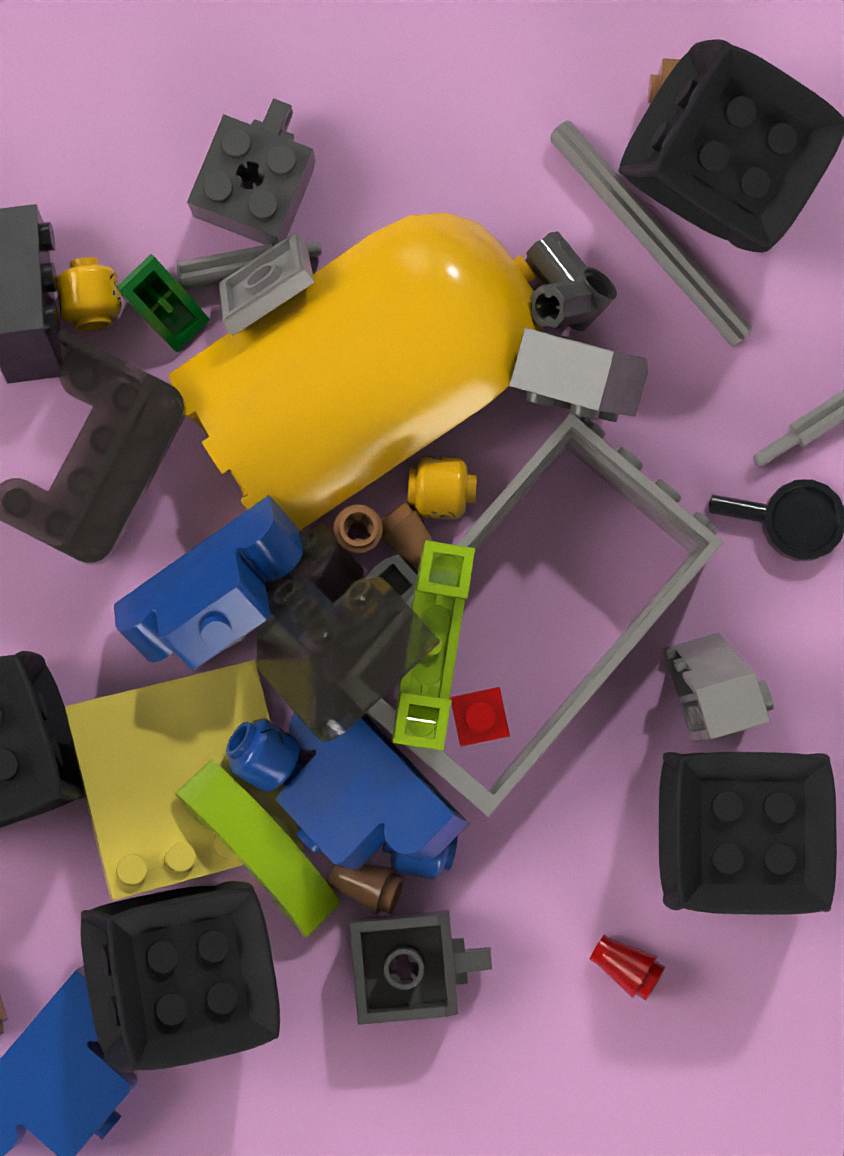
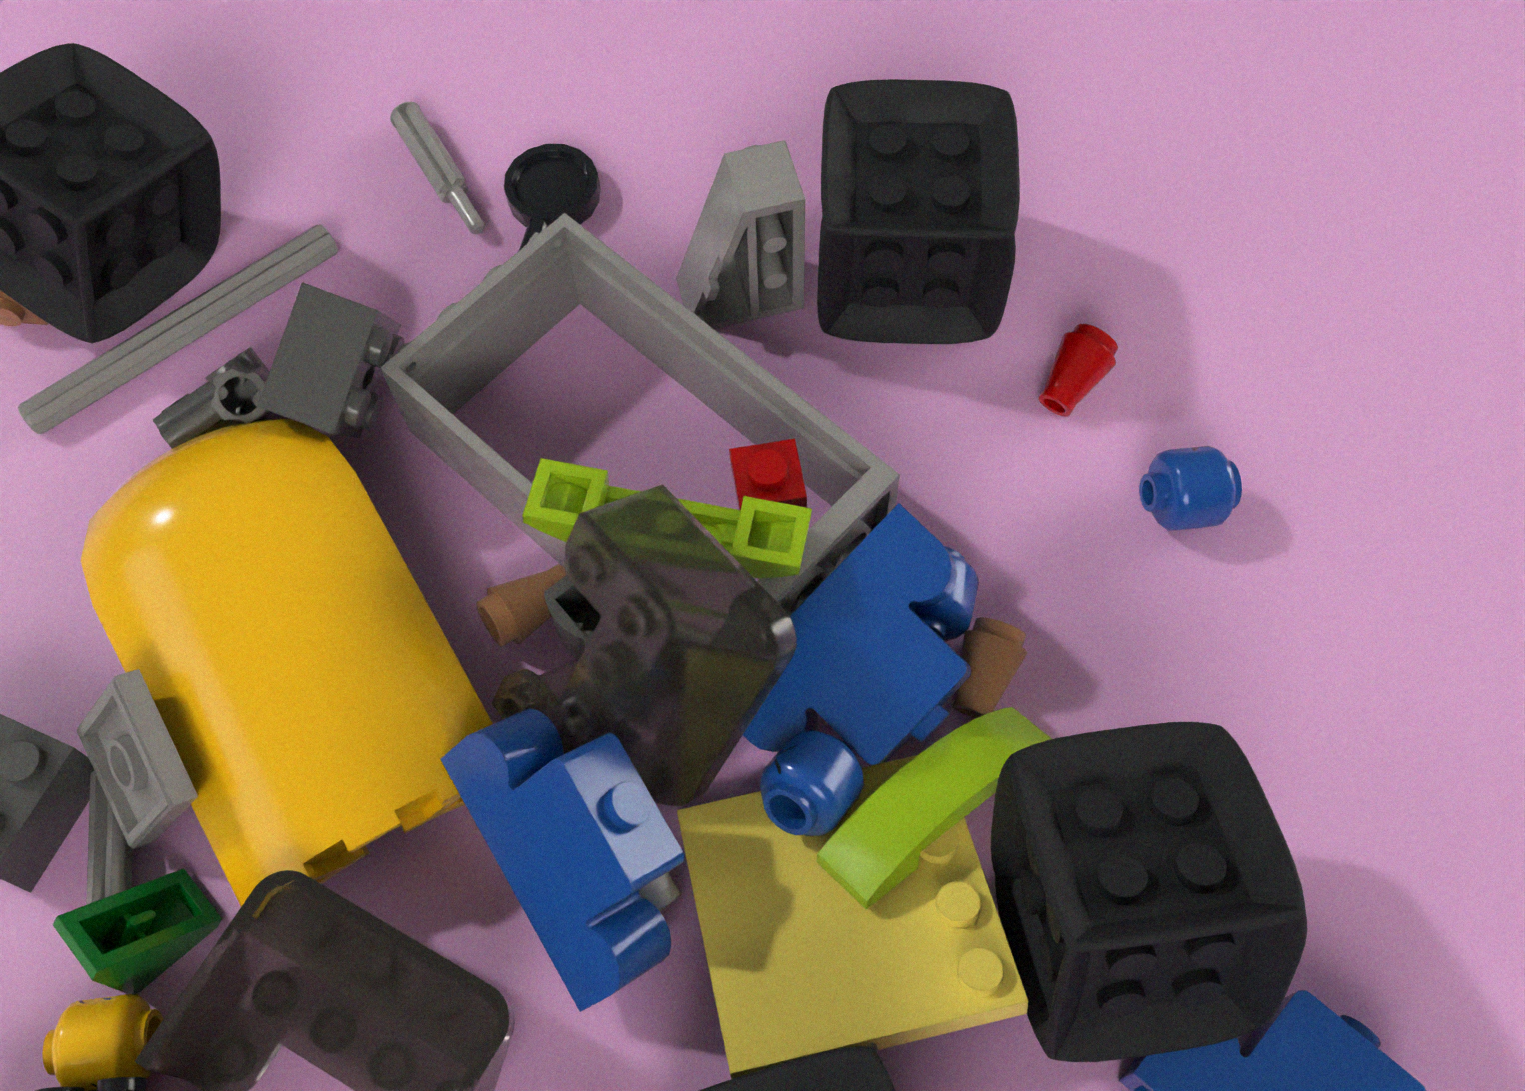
camera: 90 degrees left, 20 degrees down
(358, 517) = (503, 648): medium nougat cone -> none
(430, 989) = (1125, 583): dark grey hinge -> none
(441, 487) = (462, 562): yellow head -> none
(517, 1049) = (1190, 488): none -> blue head

